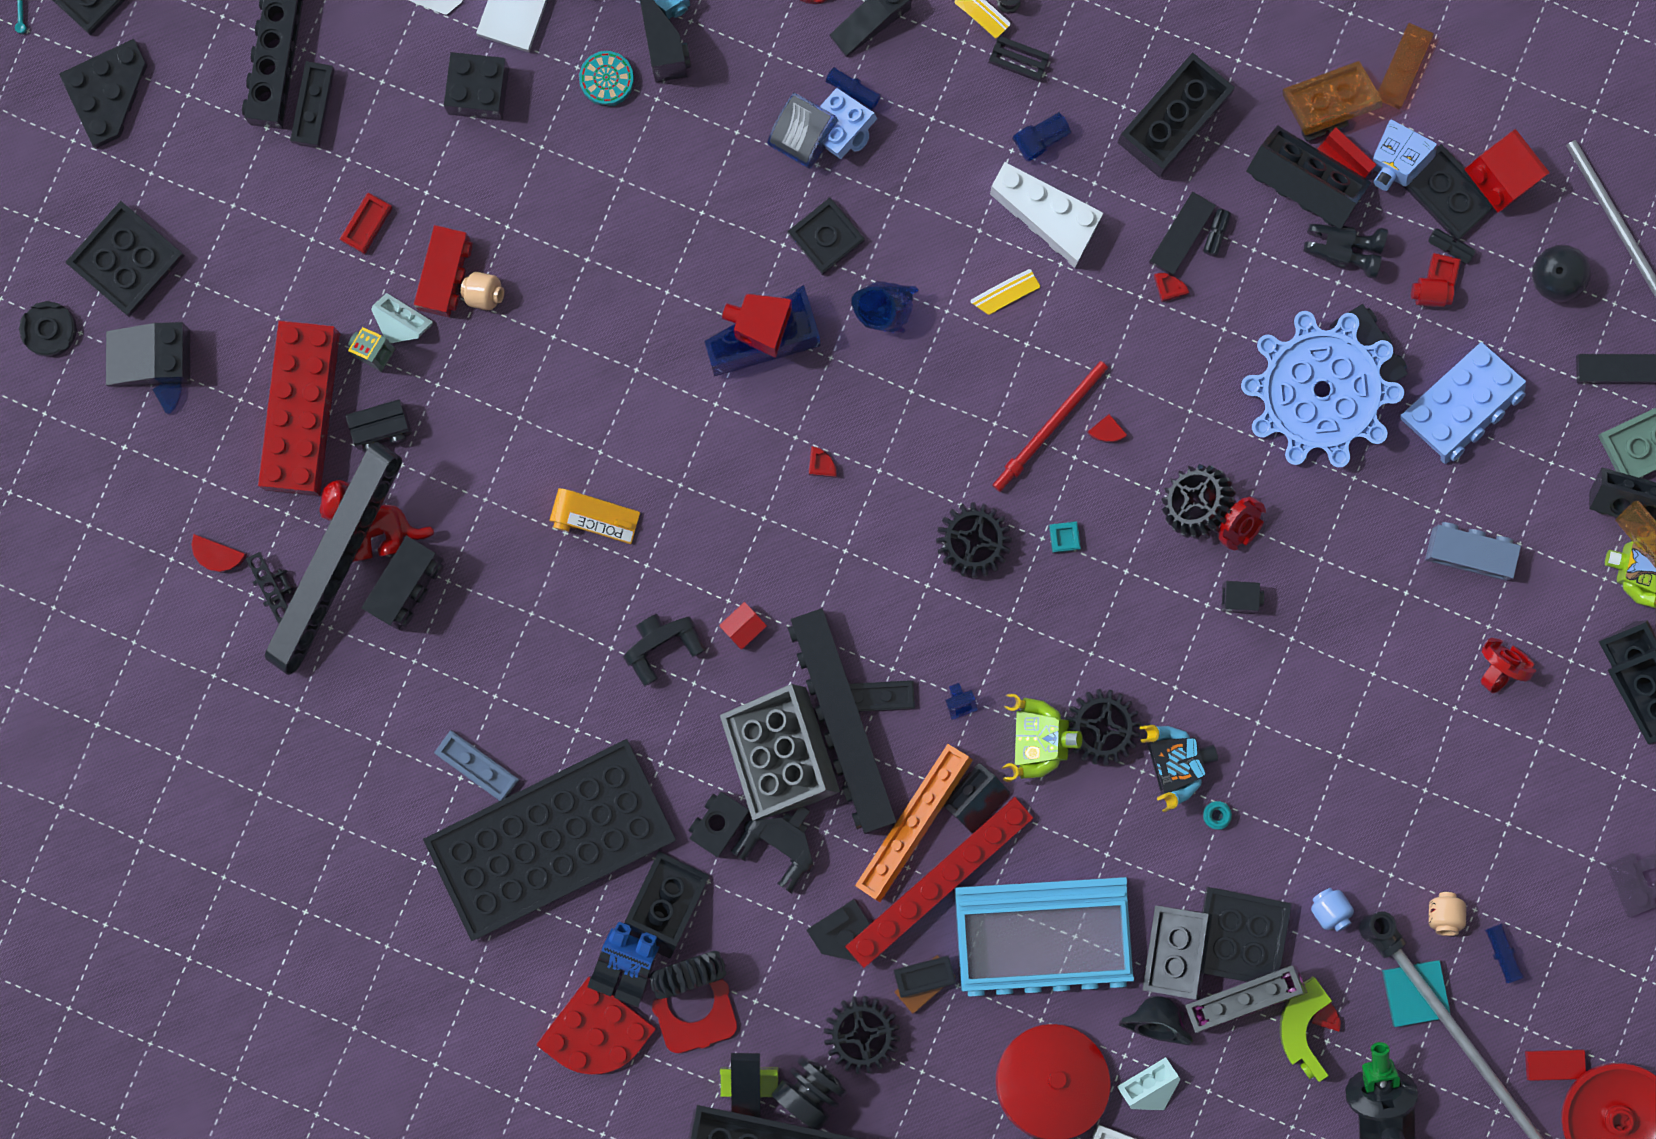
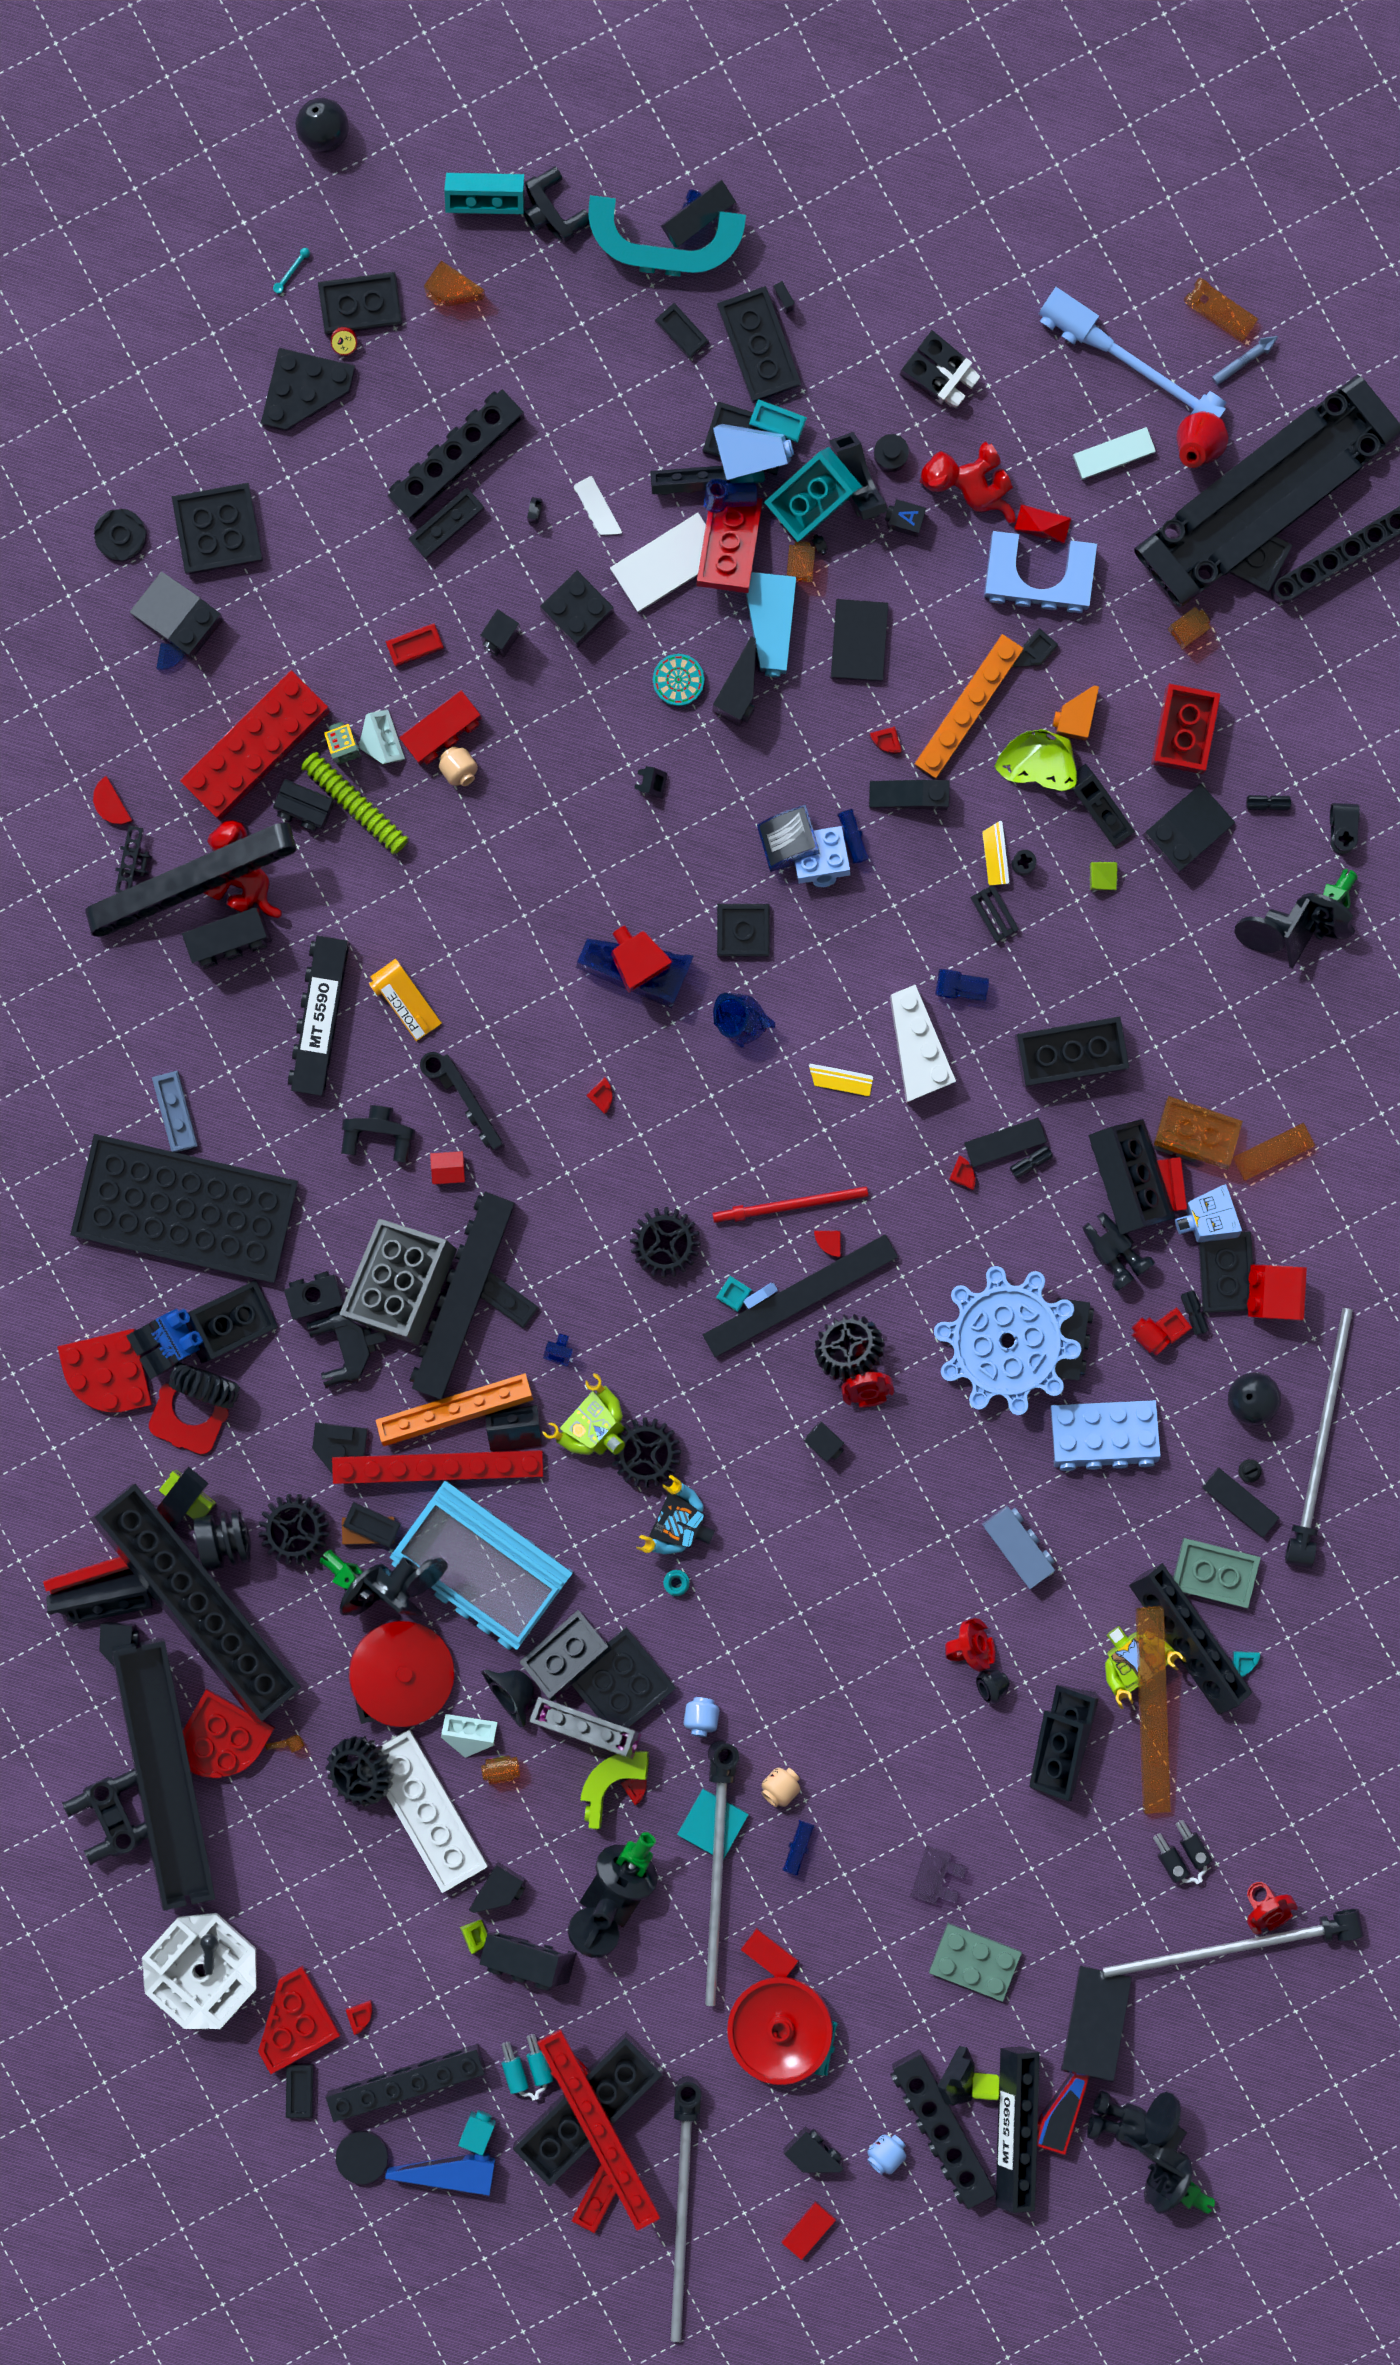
camera: 35 degrees right, 5 degrees up
(108, 26) = (343, 341): none -> light yellow tile
(377, 37) = (534, 510): none -> black tile
(420, 389) = (354, 803): none -> lime piece
(429, 154) = (500, 634): none -> black brick
(533, 586) = (319, 1016): none -> brick
(653, 174) = (653, 781): none -> black tile
(683, 546) = (449, 1076): none -> black hinge
(974, 1019) = (379, 1582): none -> black piece
(1088, 520) = (760, 1295): none -> light blue tile
(1120, 494) = (800, 1295): none -> black tile
(1203, 1094) = (500, 1769): none -> clear orange brick
(1548, 684) = (992, 1685): none -> black cone
(1604, 337) = (1249, 1470): none -> black piece

